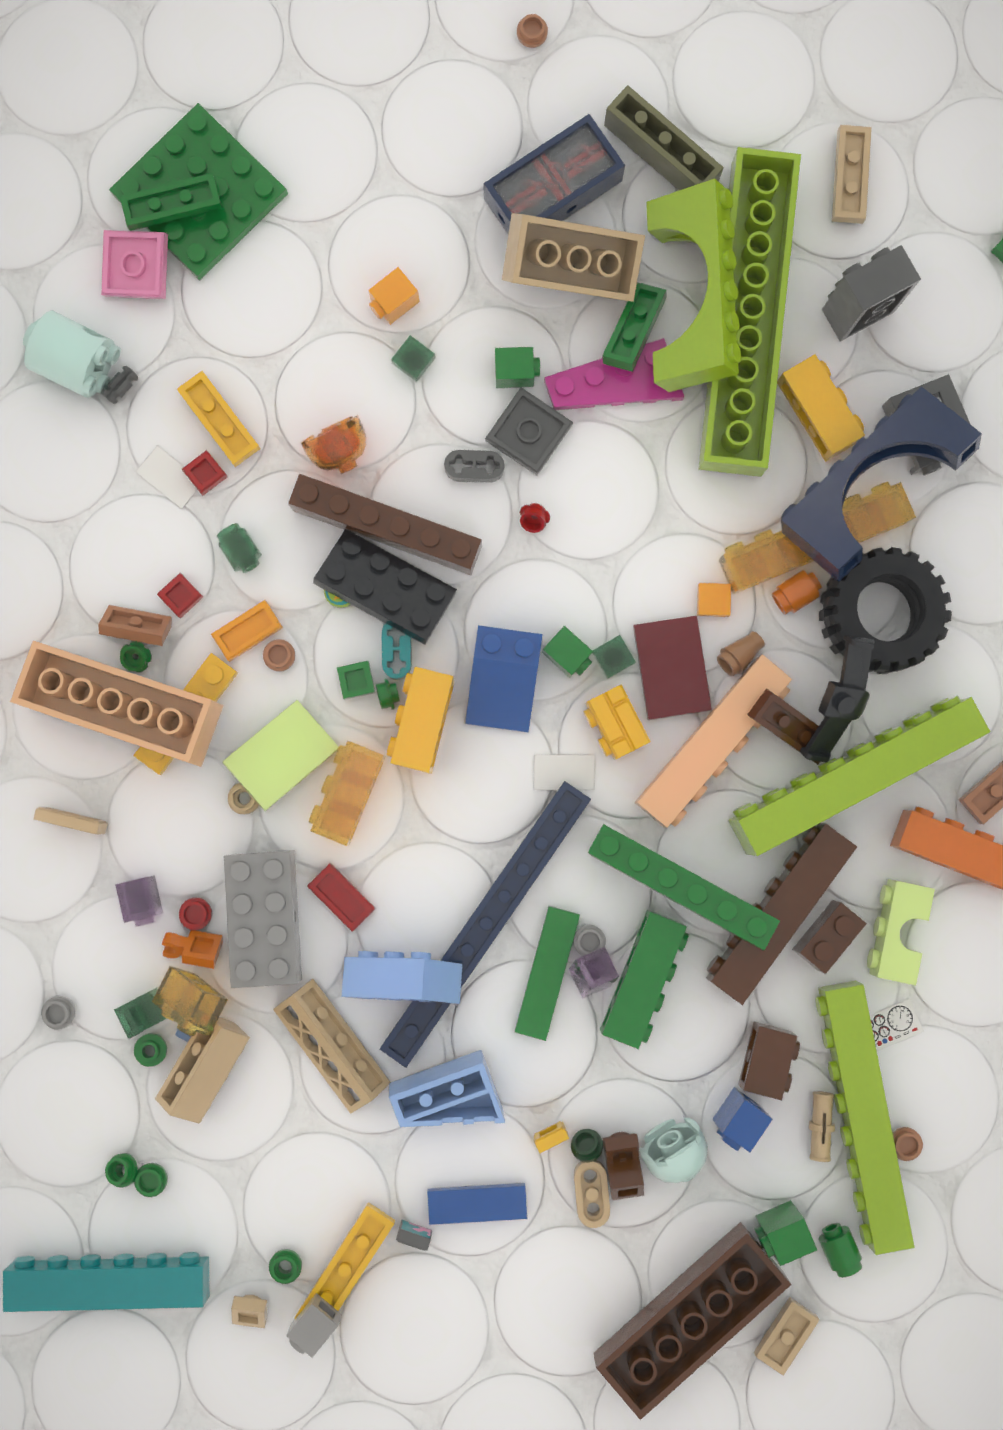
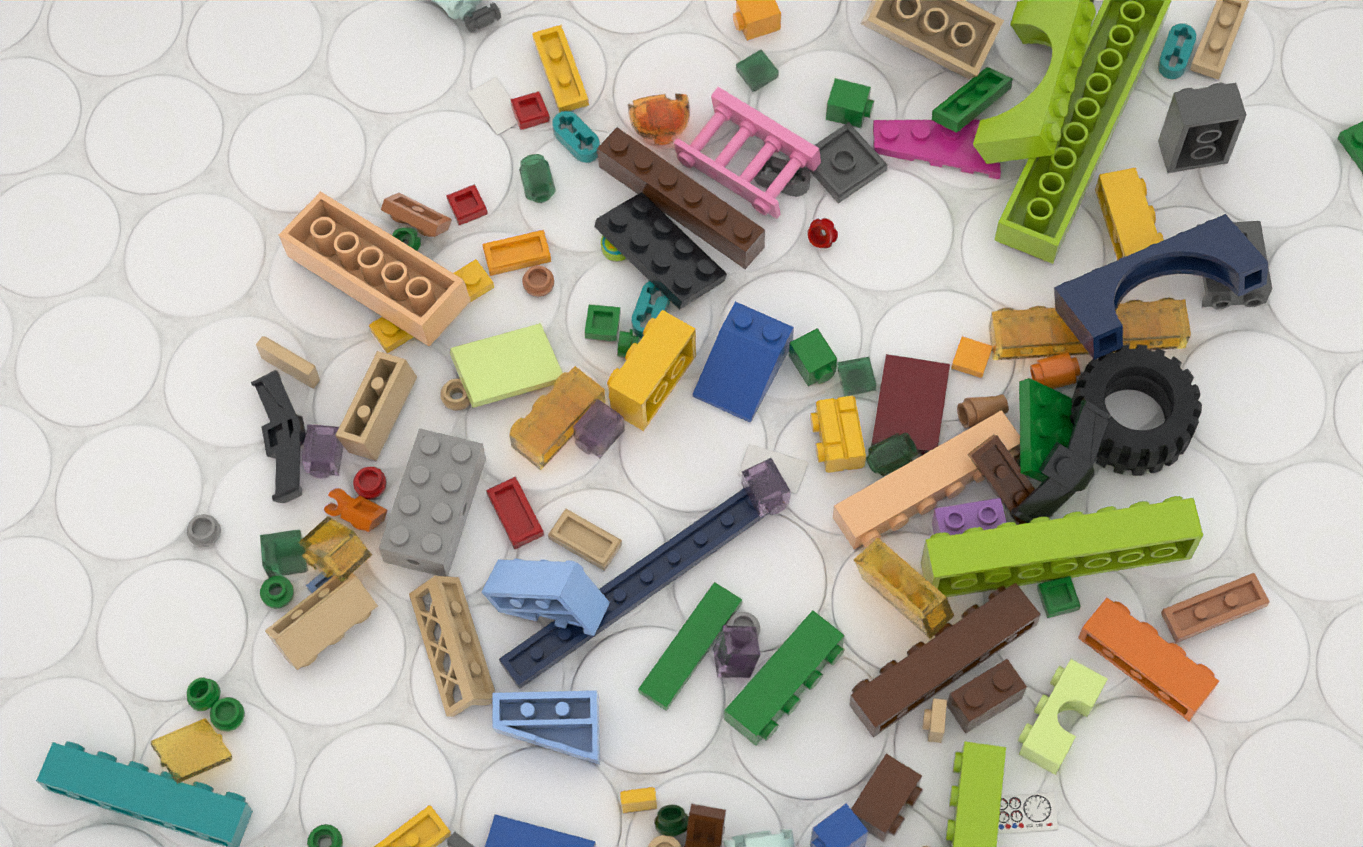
camera: 25 degrees right, 20 degrees down
(94, 897) = (281, 436): none -> black plate
(132, 1230) = (191, 750): none -> clear yellow piece
(173, 842) = (376, 405): none -> tan brick
(264, 481) = (572, 141): none -> teal beam
(390, 793) = (598, 429): none -> clear purple brick
(415, 901) = (585, 539): none -> tan tile
(458, 433) = (751, 123): none -> bright pink fence
(570, 808) = (766, 488): none -> clear purple brick
(672, 728) = (891, 453): none -> clear green brick
(684, 887) = (854, 596): green brick -> none
(727, 864) = (904, 588): none -> clear yellow brick
(765, 776) = (960, 517): none -> medium lavender brick
(790, 973) = (935, 720): none -> tan plate
(806, 659) = (1042, 424): none -> green plate
(821, 204) = (1171, 49): none -> teal beam
(863, 816) = (1058, 596): none -> green tile

